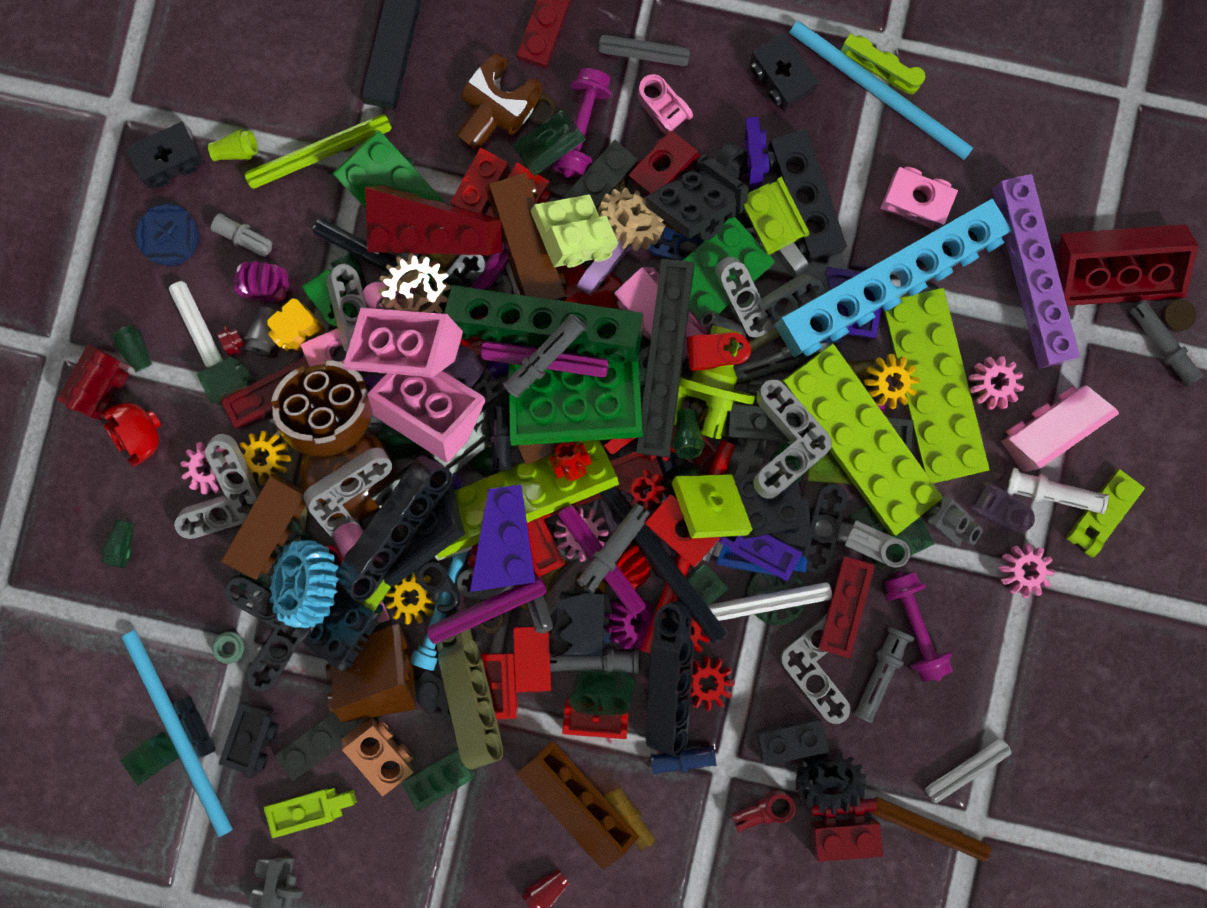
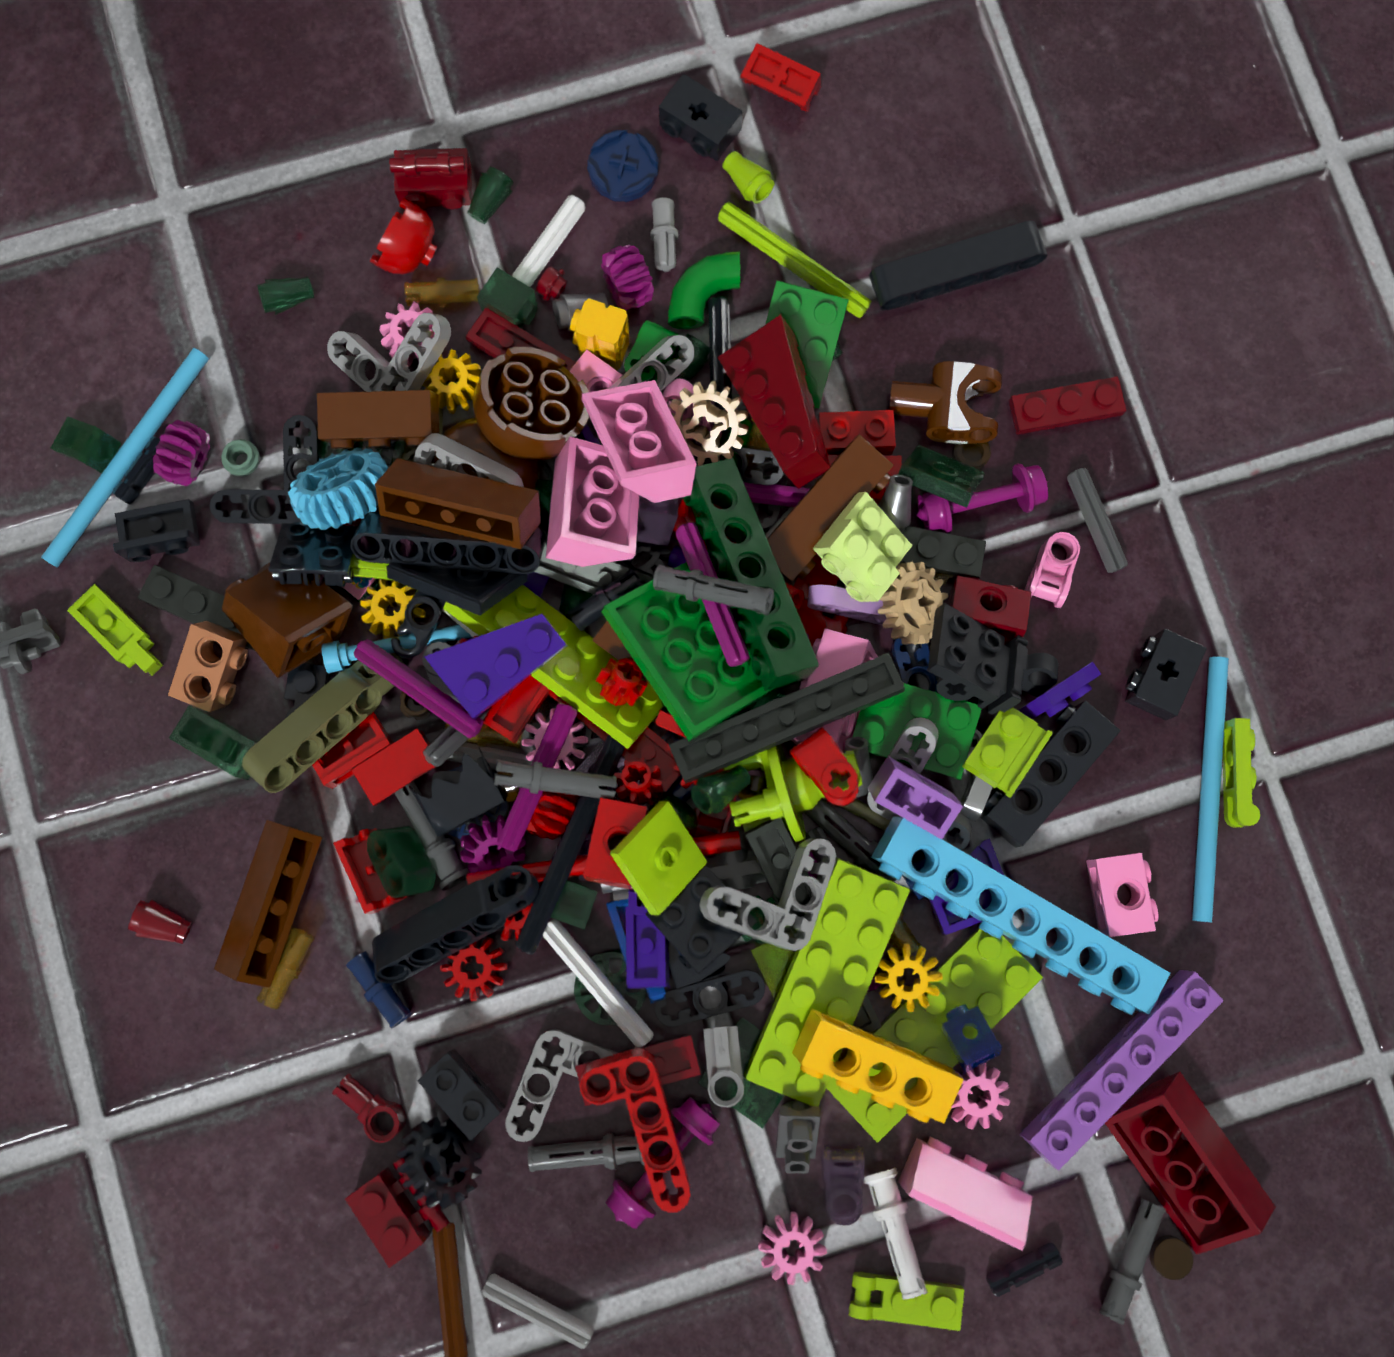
camera: 55 degrees right, 5 degrees down
(171, 76) = (781, 76): none -> red hinge
(188, 426) = (442, 291): none -> clear yellow pin
(201, 688) = (181, 453): none -> magenta gear
(296, 231) = (698, 284): none -> green cylinder
(370, 503) = (458, 503): none -> reddish brown brick
(550, 185) = (897, 501): none -> flat silver cone
(772, 301) = (914, 797): none -> medium lavender brick
(893, 622) = (646, 1129): none -> red beam
(900, 461) = (825, 1035): none -> yellow brick
(967, 369) = (974, 1051): none -> clear blue brick
(1129, 420) = (1024, 1269): none -> black axle

